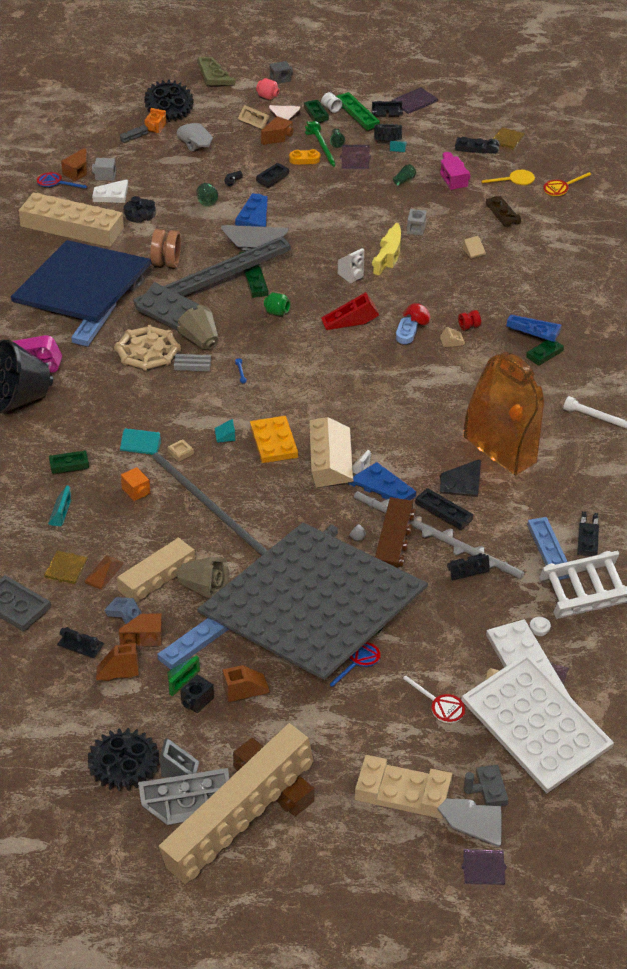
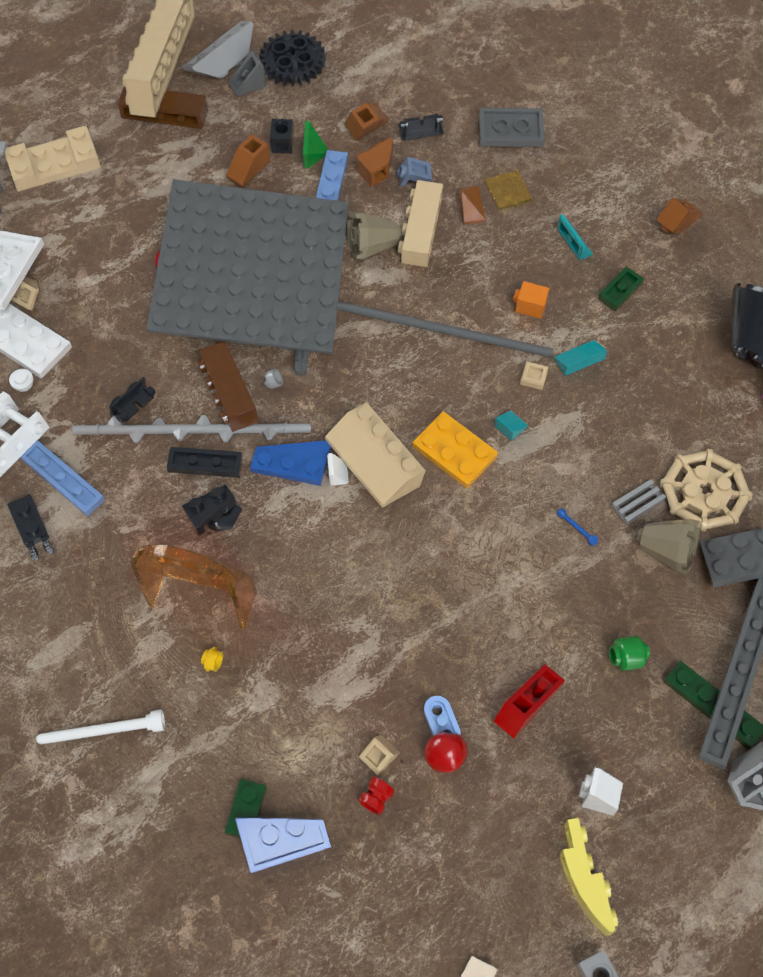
camera: 145 degrees right, 20 degrees up
(444, 707) = (64, 250): piece -> none

